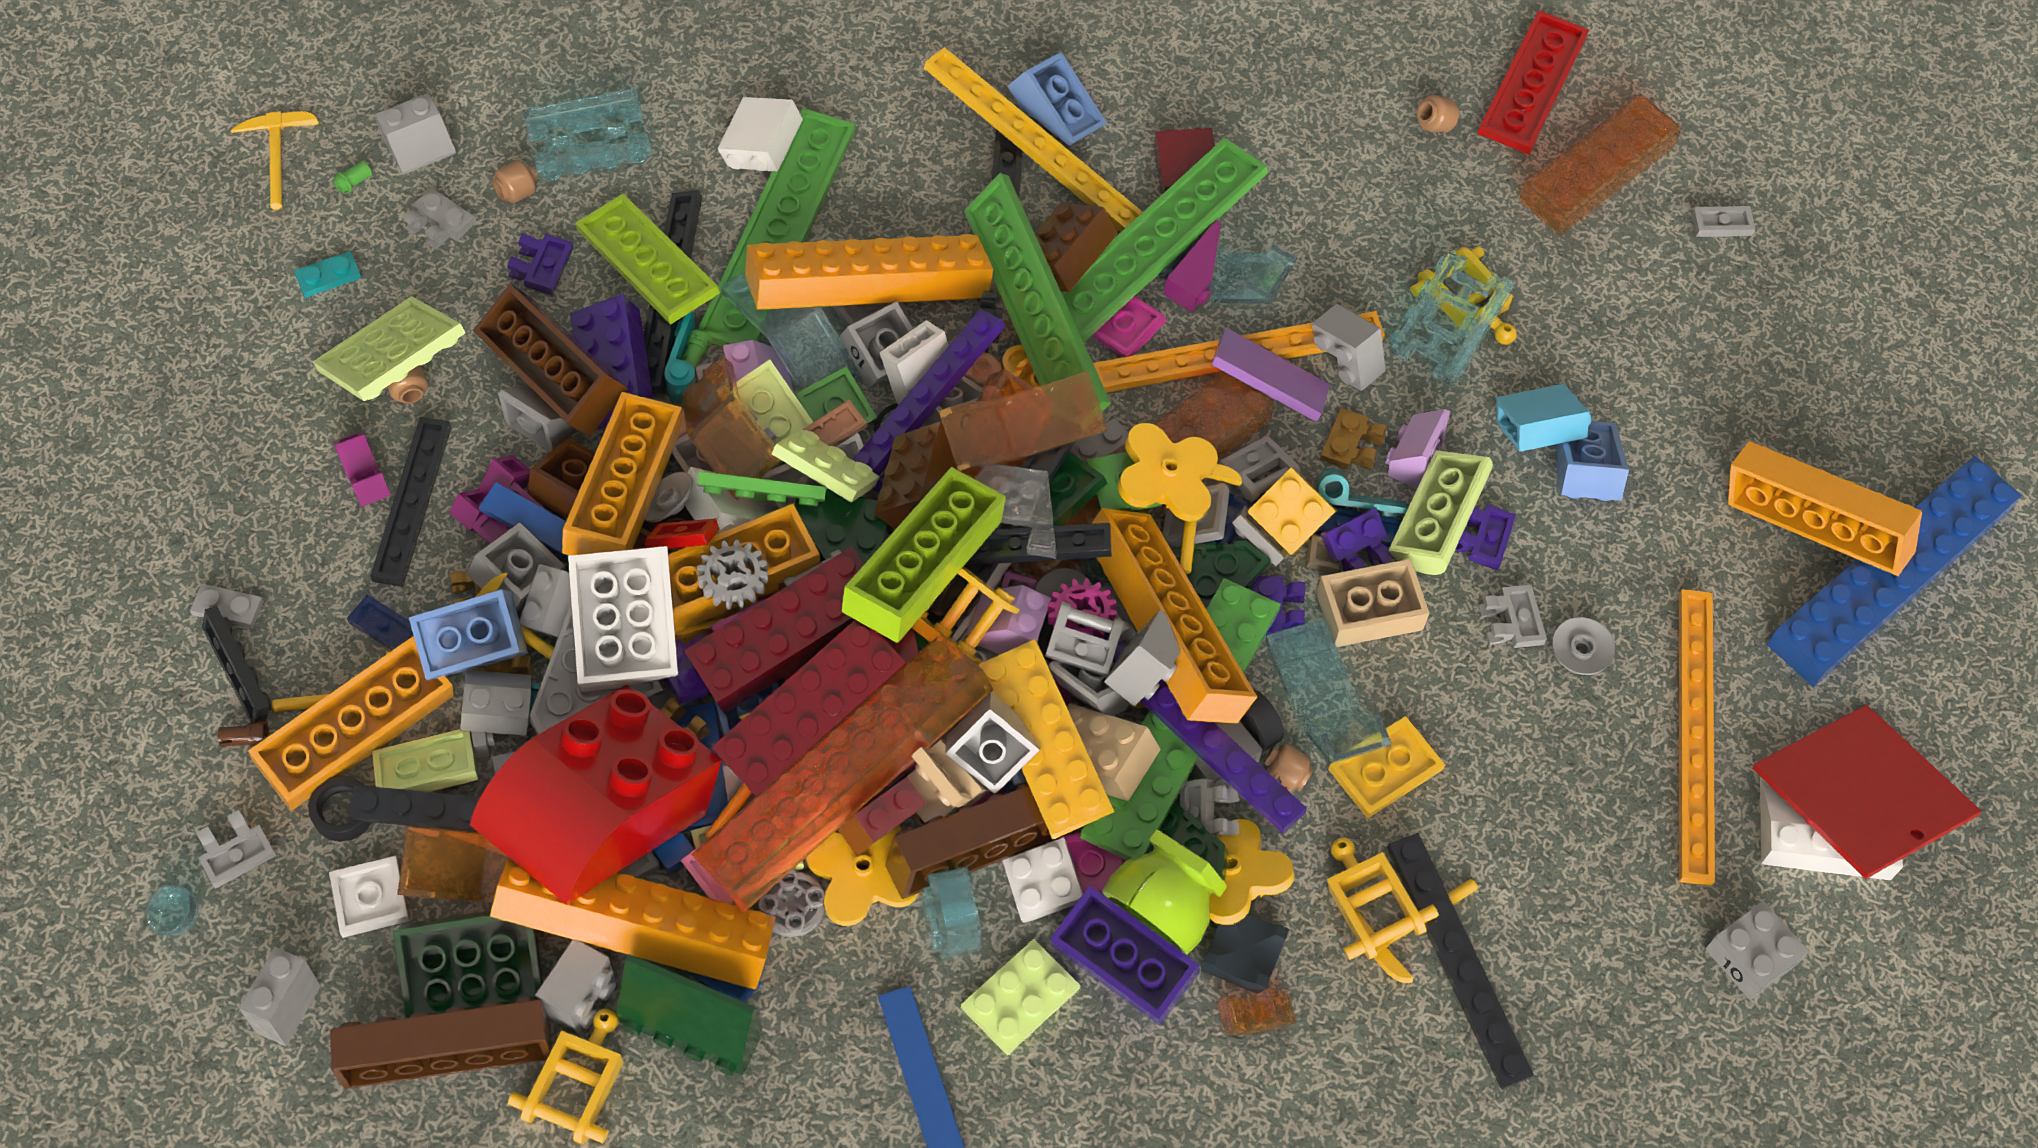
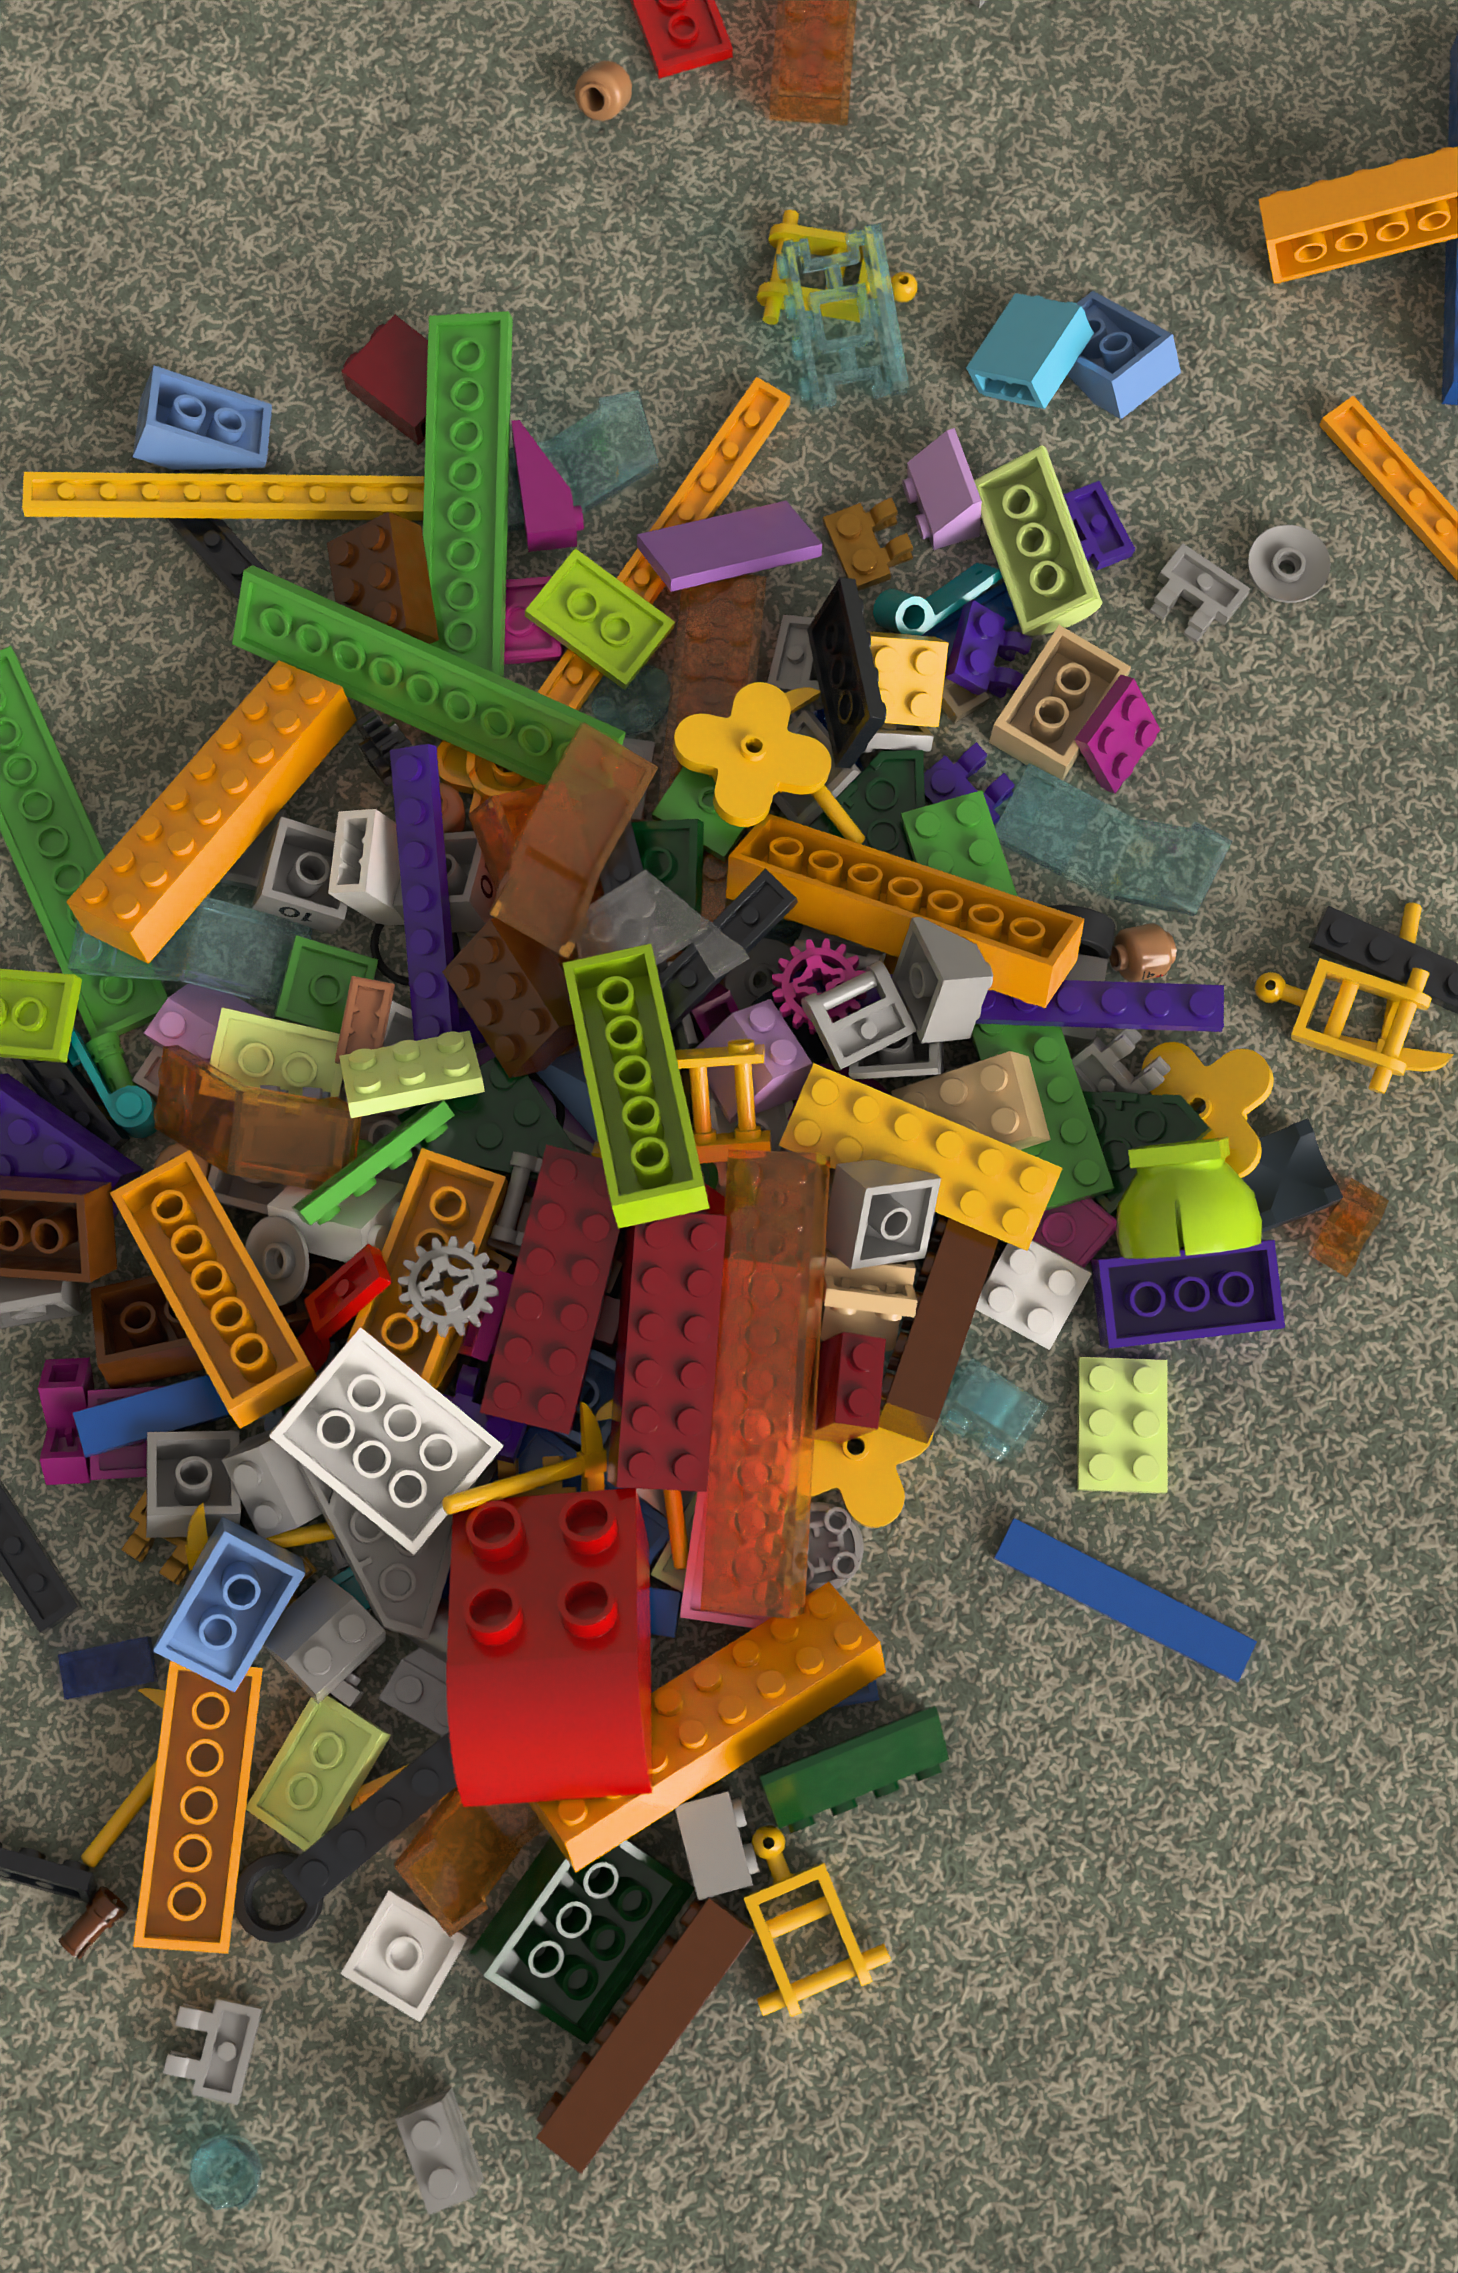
camera: 40 degrees left, 15 degrees up
(711, 734) = (589, 1463): none -> yellow piece
(1140, 405) = (638, 706): none -> clear light blue dish
(1163, 352) = (599, 619): none -> lime plate
(1262, 478) = (846, 673): none -> black plate
(1354, 343) = (775, 435): light grey brick -> none
(1388, 643) = (1117, 734): none -> magenta plate
(1389, 772) = (1243, 880): yellow plate -> none

